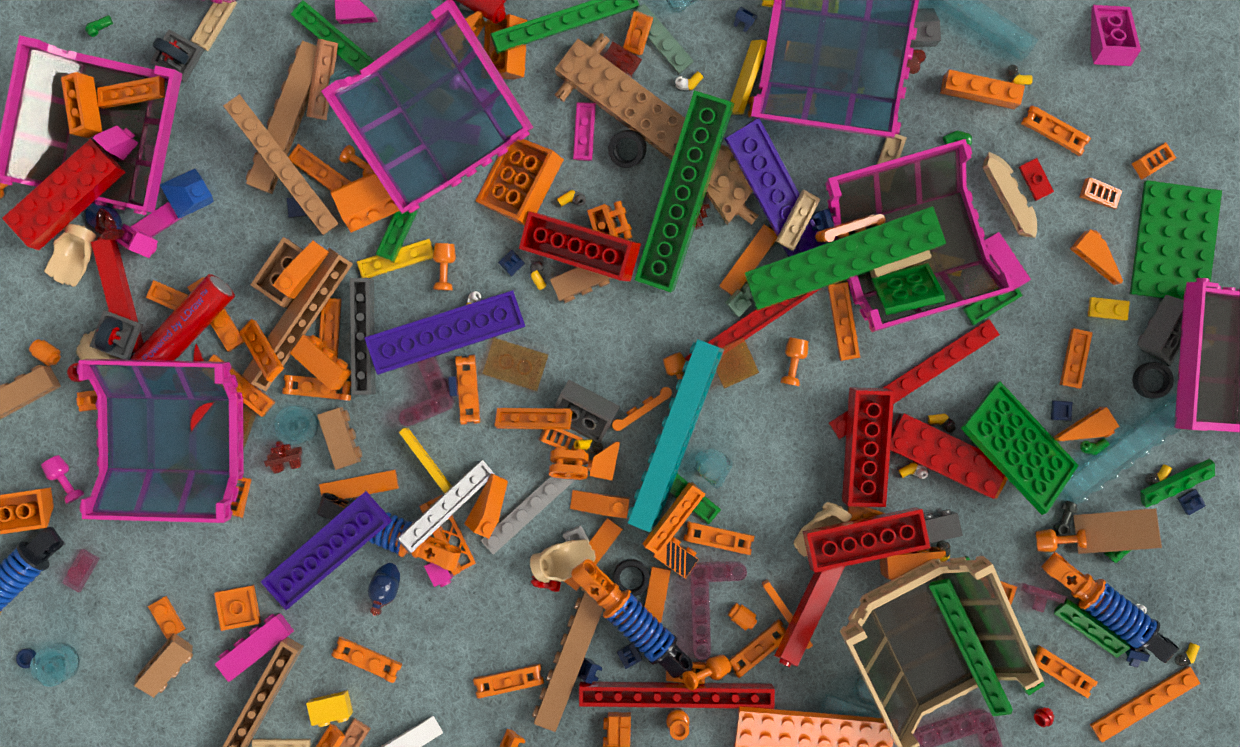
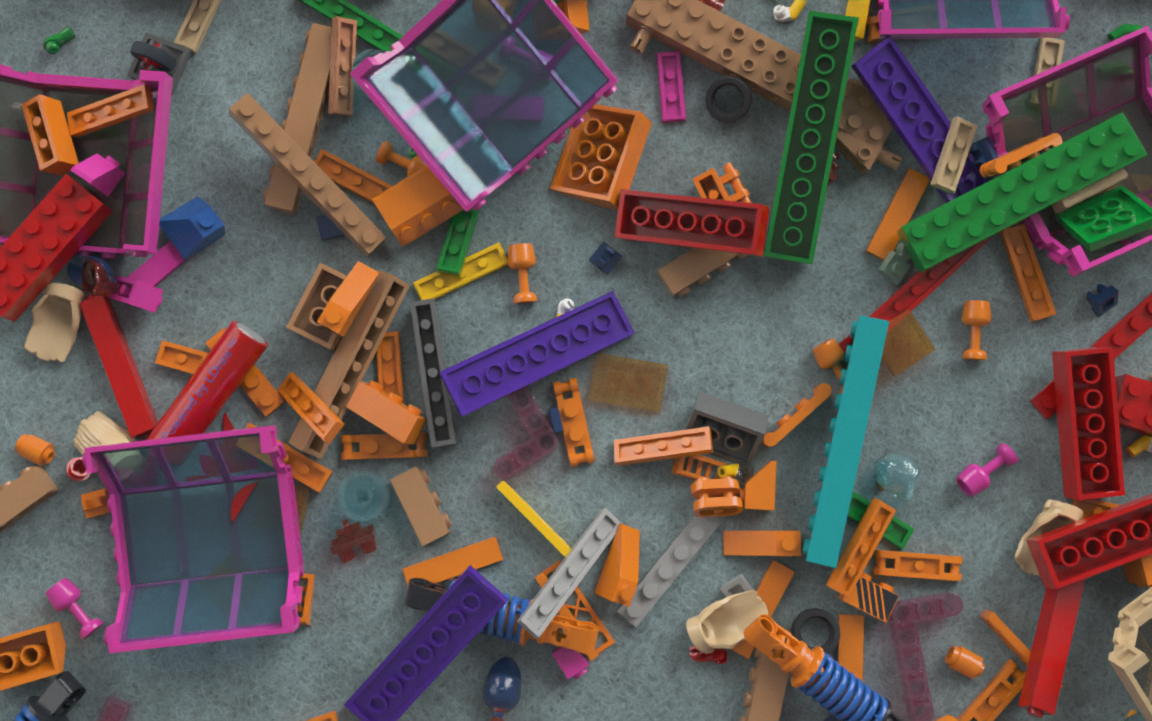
camera: 10 degrees left, 5 degrees down
(116, 335) = (124, 413): plate -> none
(535, 275) = (637, 268): yellow arm -> none
(572, 196) = (668, 167): arm -> none
(774, 478) = (976, 479): none -> dark pink piece
(899, 352) = (1104, 300): none -> dark blue tile

